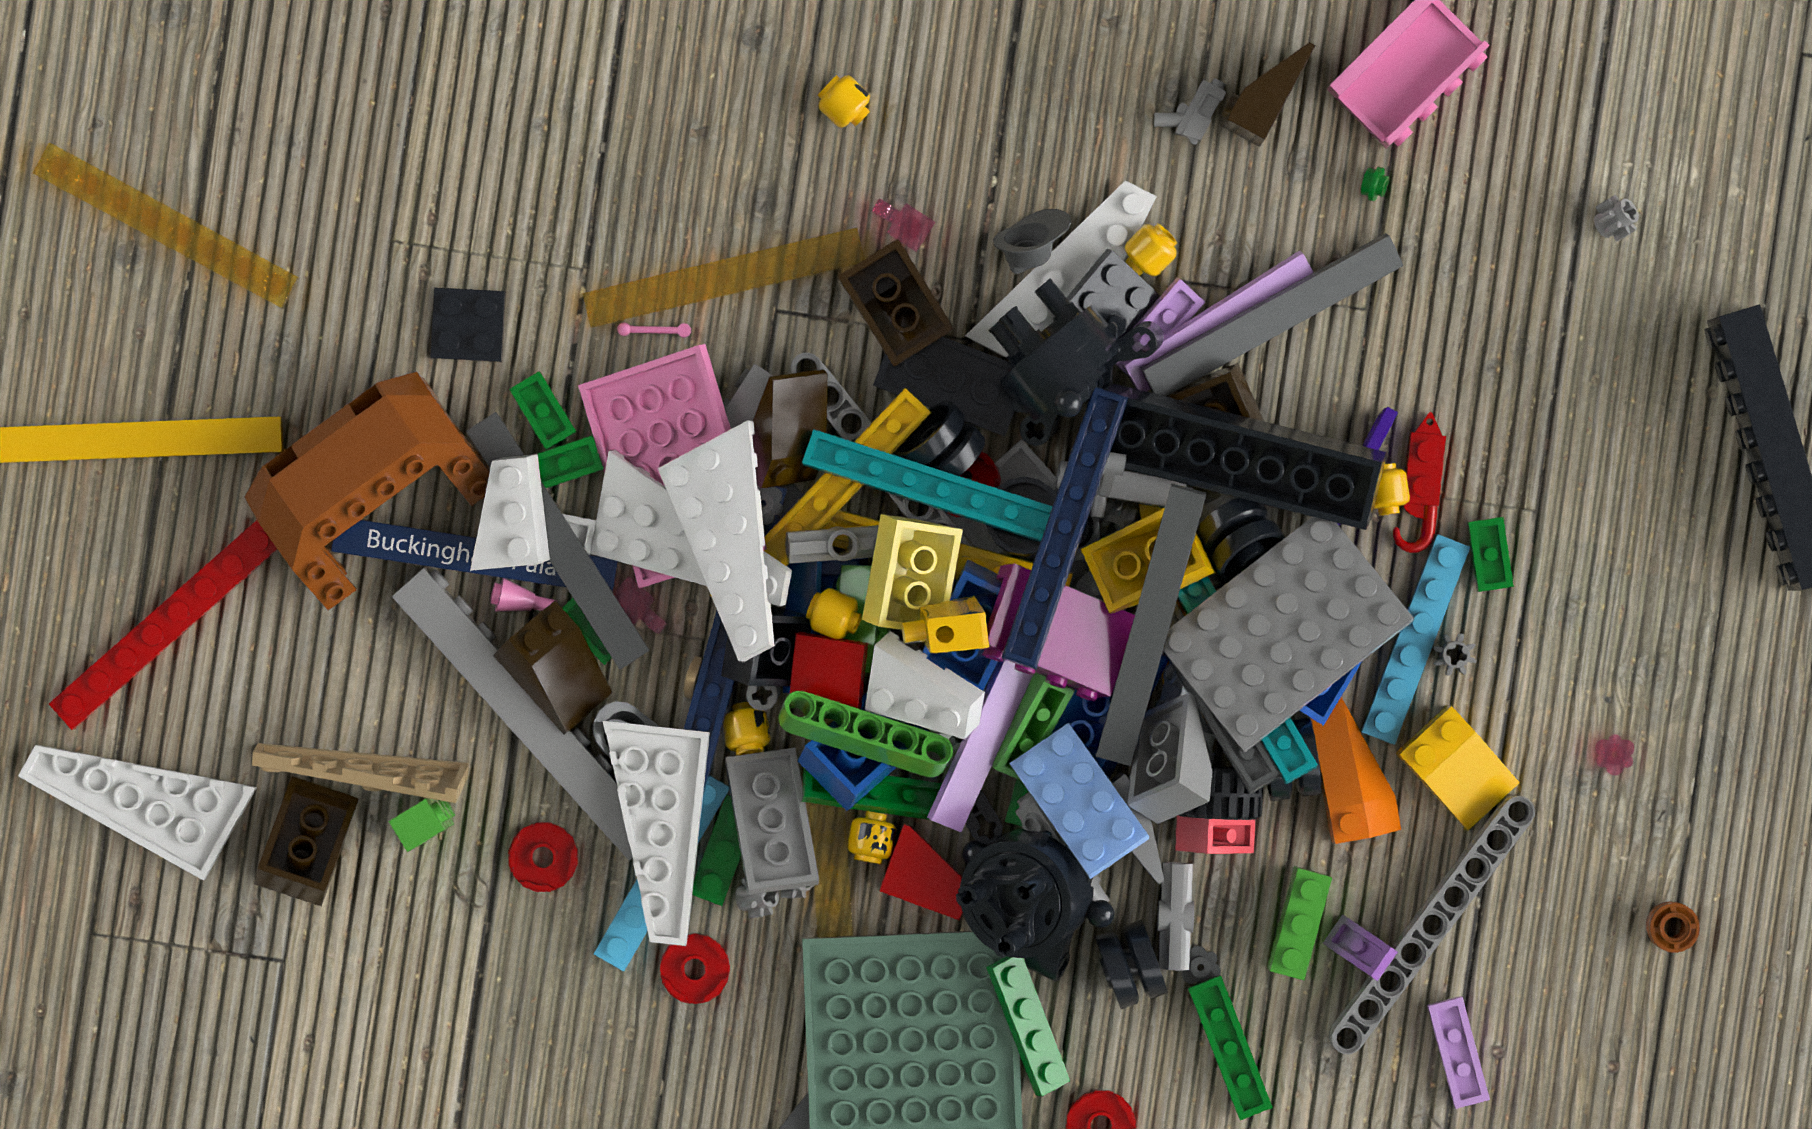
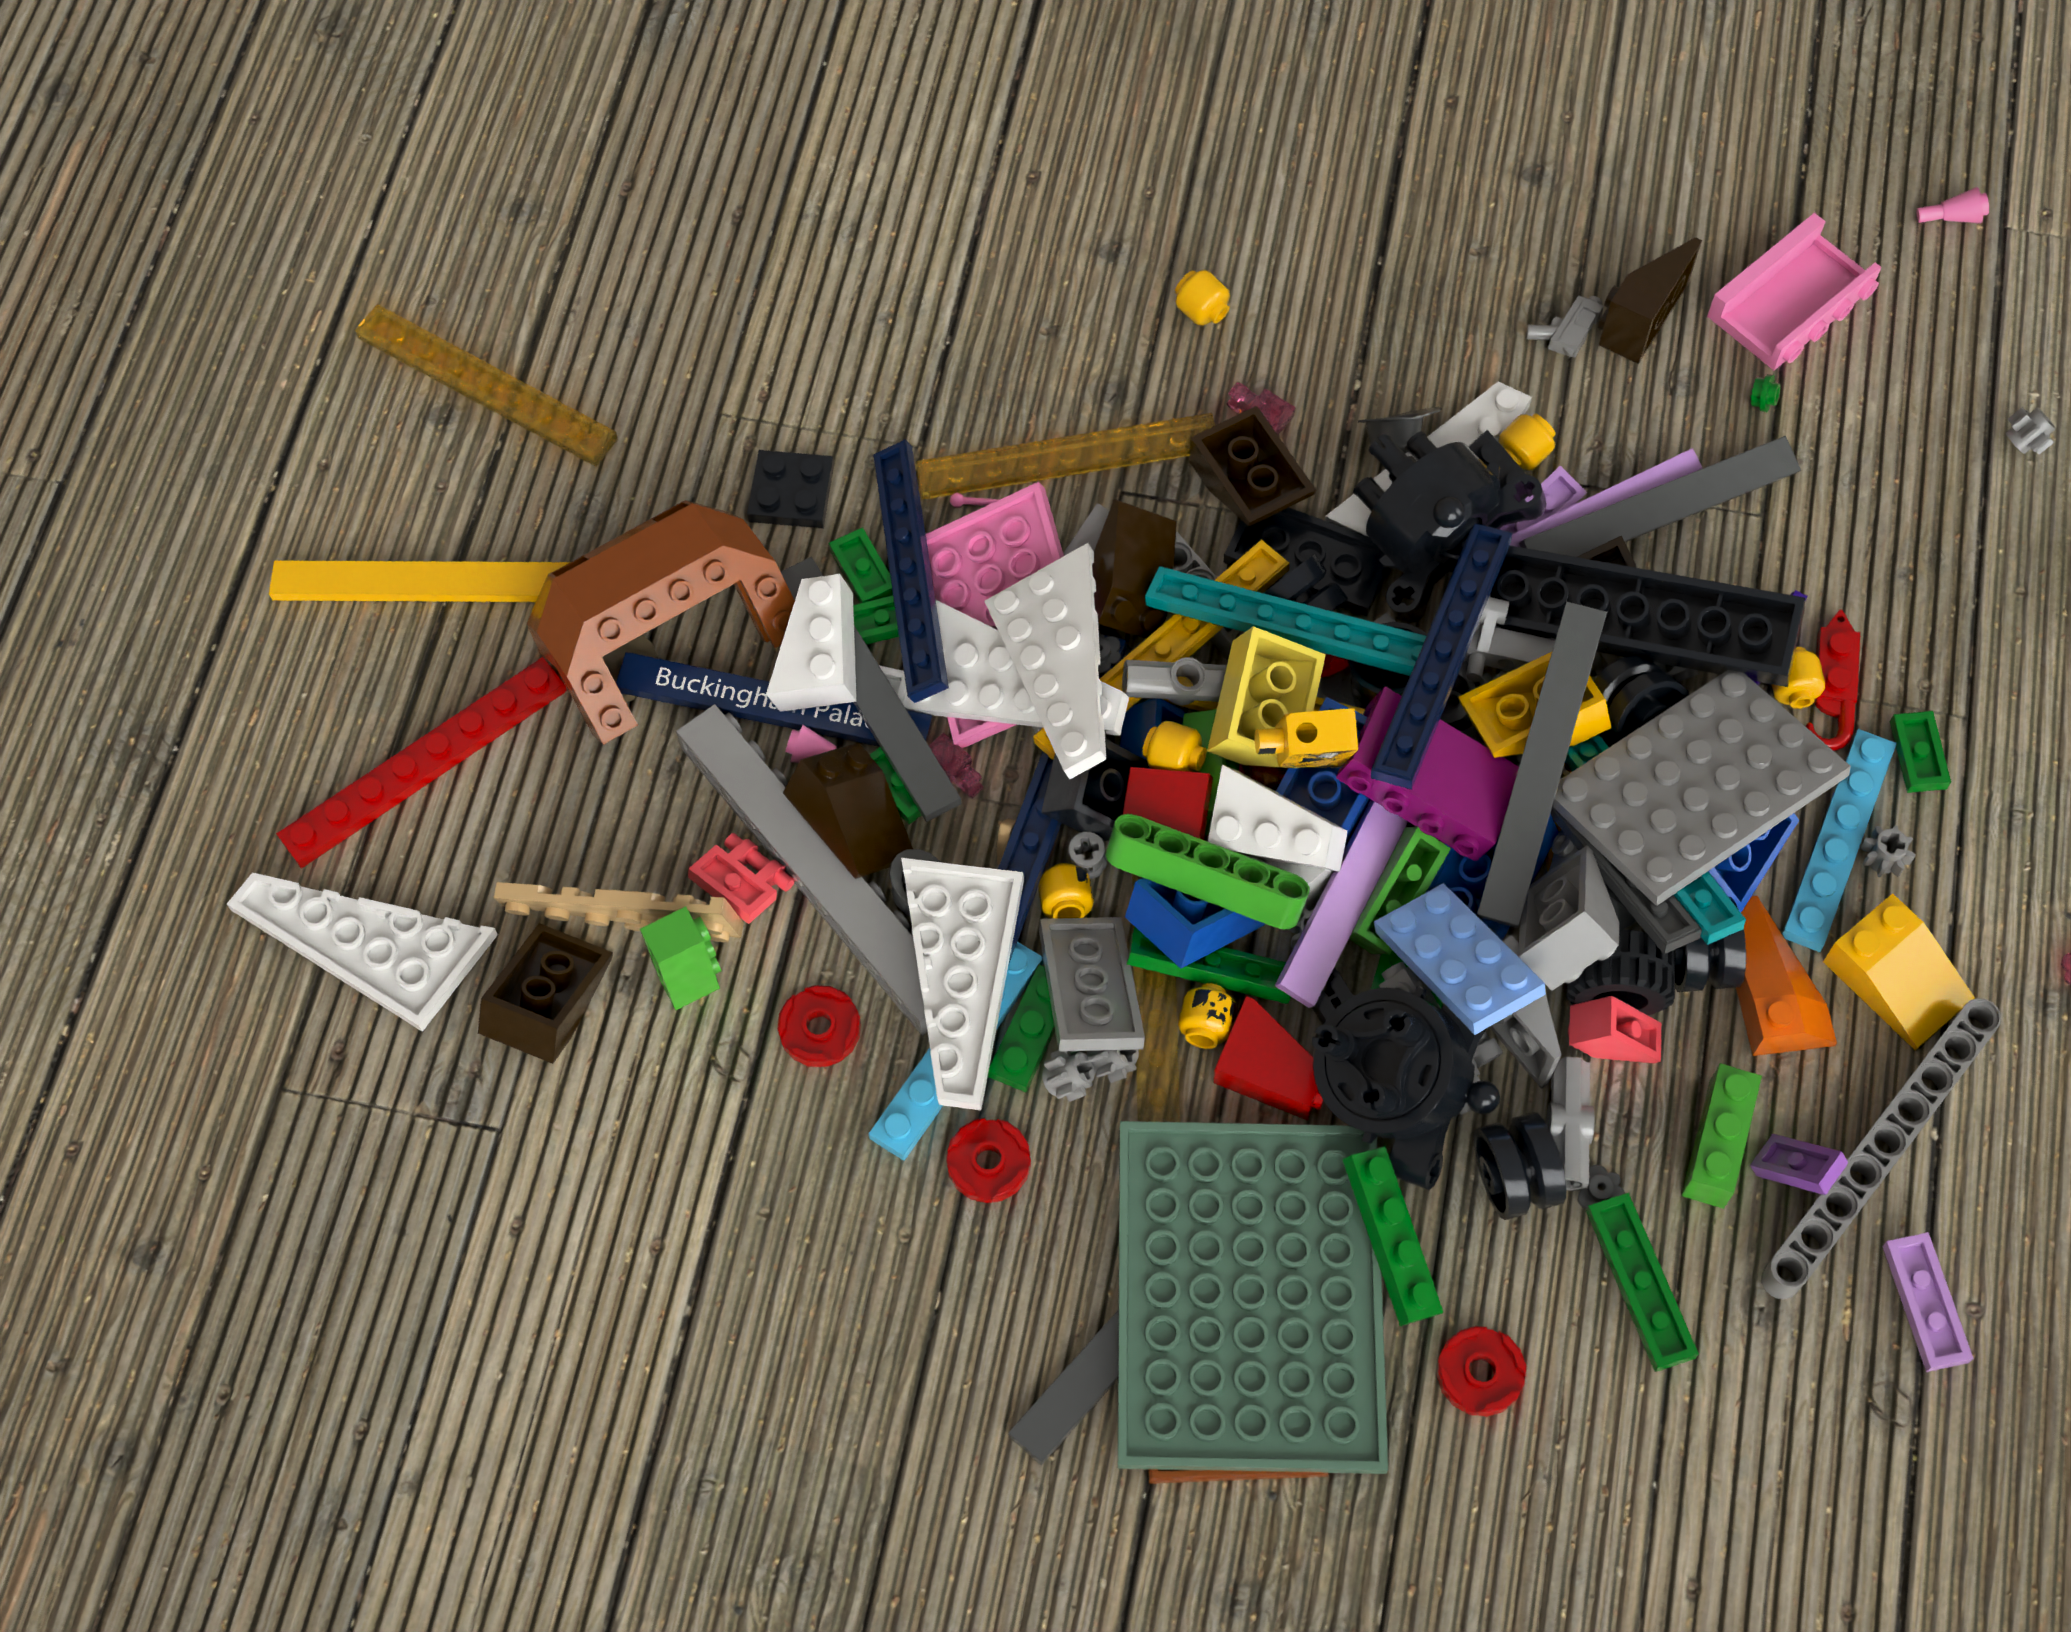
camera: 10 degrees right, 25 degrees down
(458, 736) = (727, 877): none -> coral plate
(586, 418) = (910, 572): none -> dark blue tile

